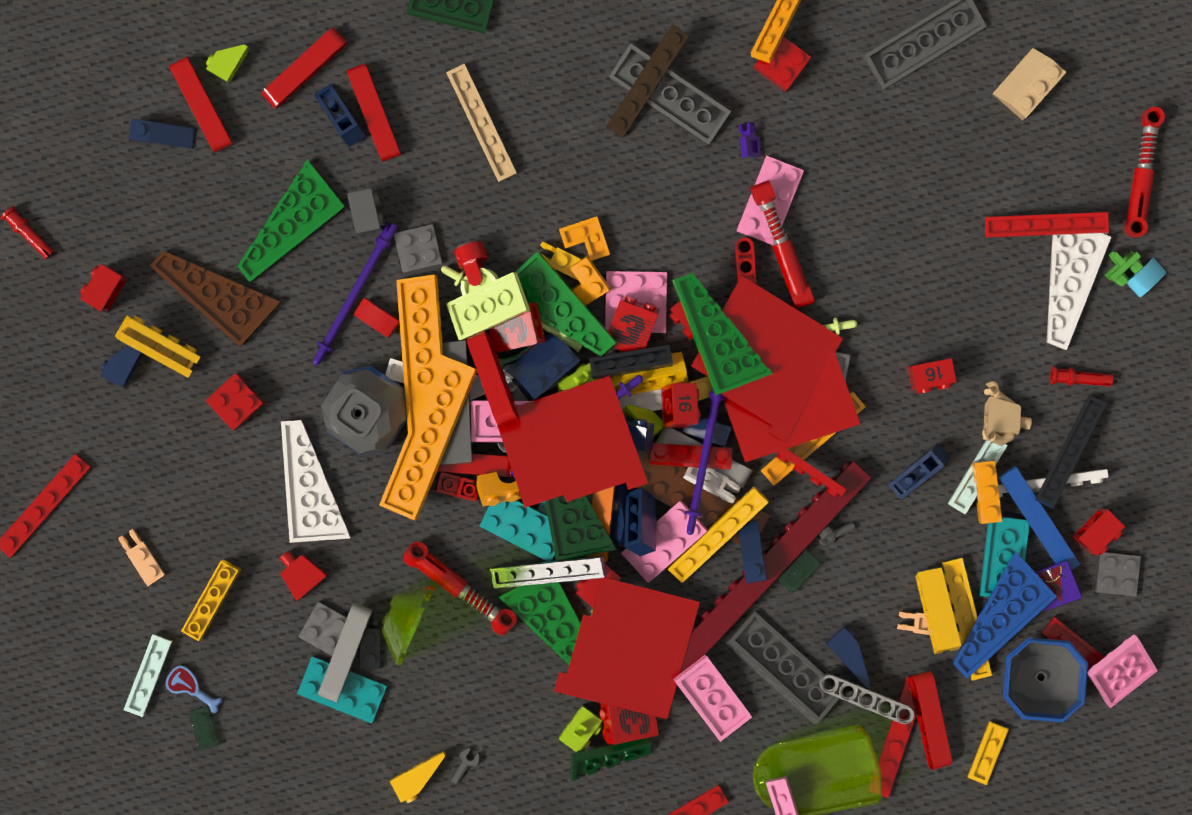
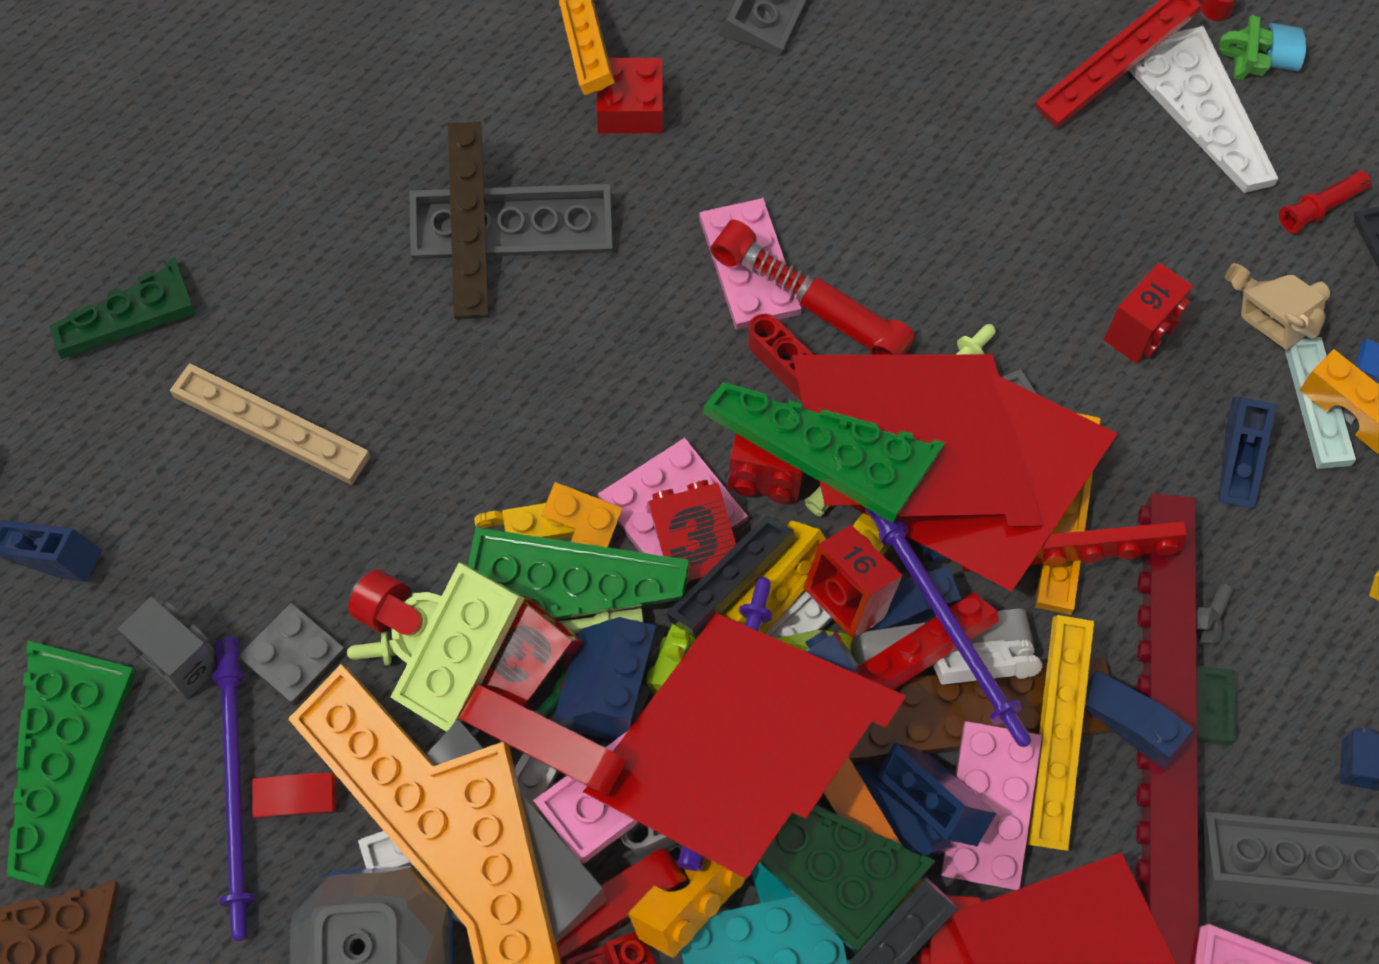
camera: 35 degrees left, 25 degrees down
(373, 112) = (94, 512): red beam -> none
(588, 232) = (532, 461): light orange plate -> none
(749, 143) = (666, 211): dark purple plate -> none

